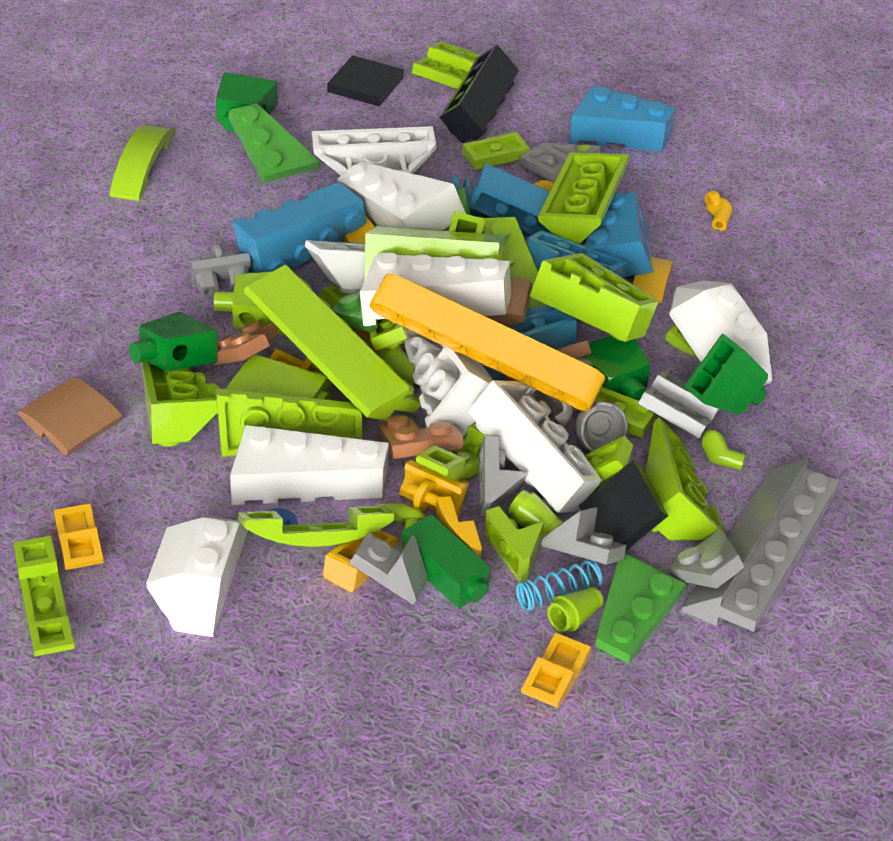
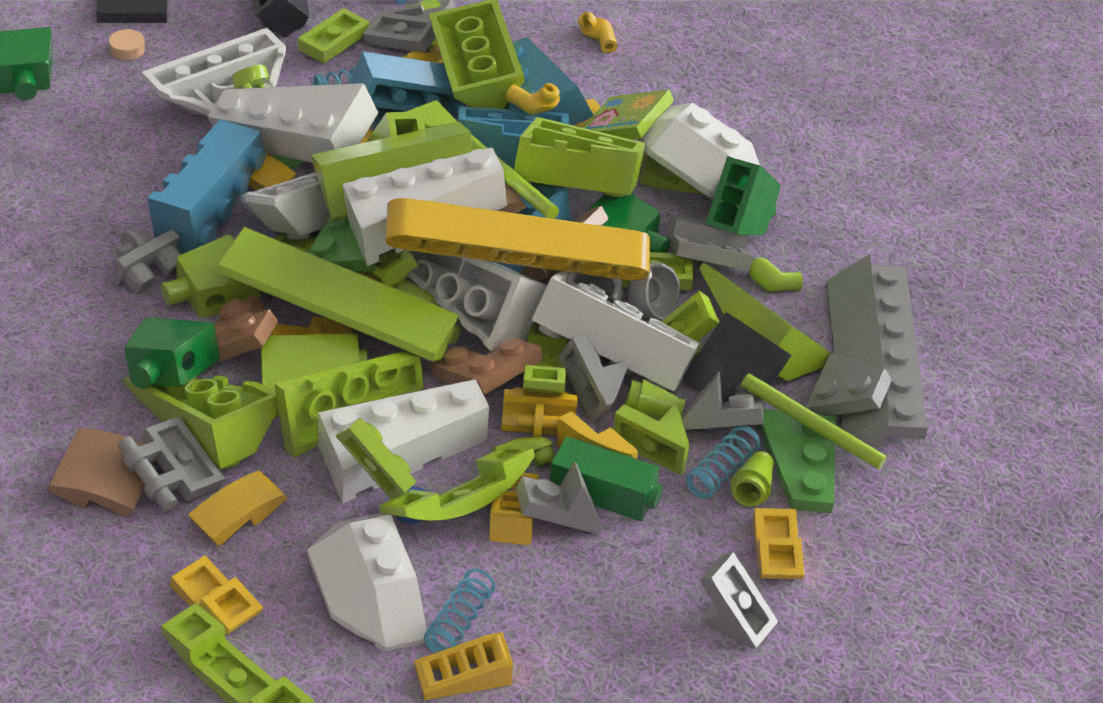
camera: 30 degrees left, 0 degrees up
(127, 421) = (180, 456): none -> light grey plate
(156, 473) = (235, 504): none -> yellow slope
(222, 646) = (439, 630): none -> medium azure piece
(230, 680) = (468, 680): none -> yellow slope
(251, 458) = (366, 447): none -> lime plate
(269, 145) = (88, 102): bright green wing -> none
(334, 113) = (127, 44): none -> light nougat tile
(388, 158) = (251, 77): none -> lime tile
(476, 703) = (737, 603): none -> light grey slope
(525, 293) = (524, 188): none -> lime bar
(600, 244) = (534, 103): none -> yellow arm
(656, 580) = (813, 421): none -> lime bar
(676, 279) = (630, 114): none -> lime tile

